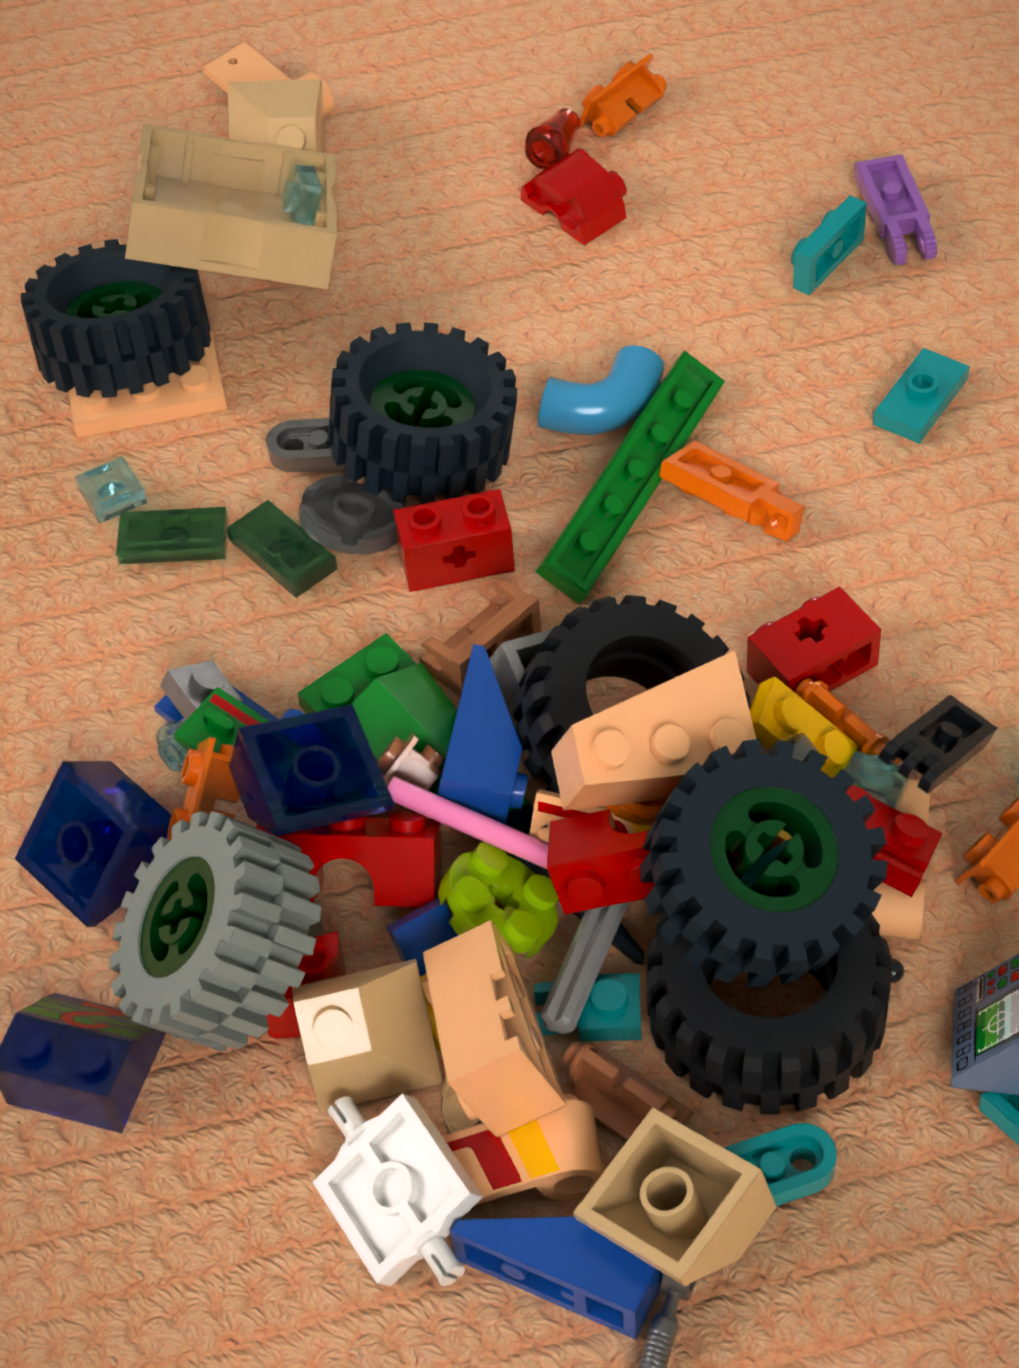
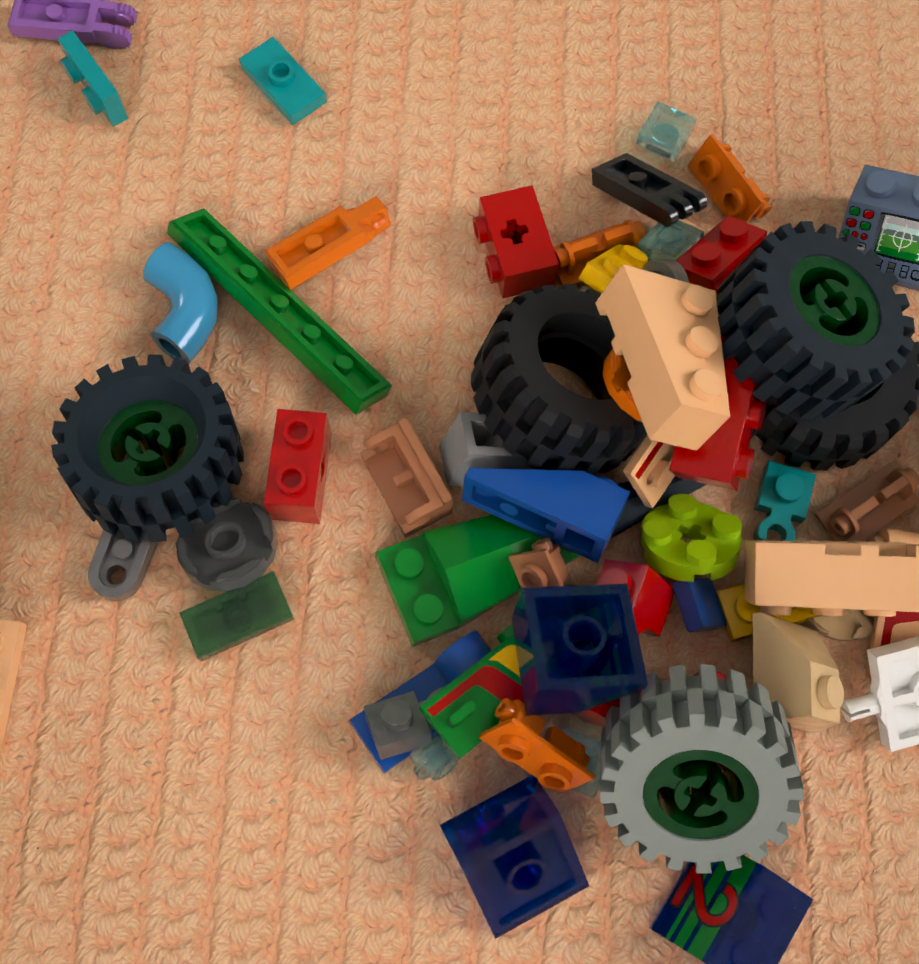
camera: 80 degrees left, 20 degrees up
(111, 489) = (95, 757): clear light blue plate -> none
(172, 535) = (179, 711): clear green plate -> none
(469, 822) = (631, 533): bright pink bar -> none
(581, 968) = (779, 506): light grey axle -> none

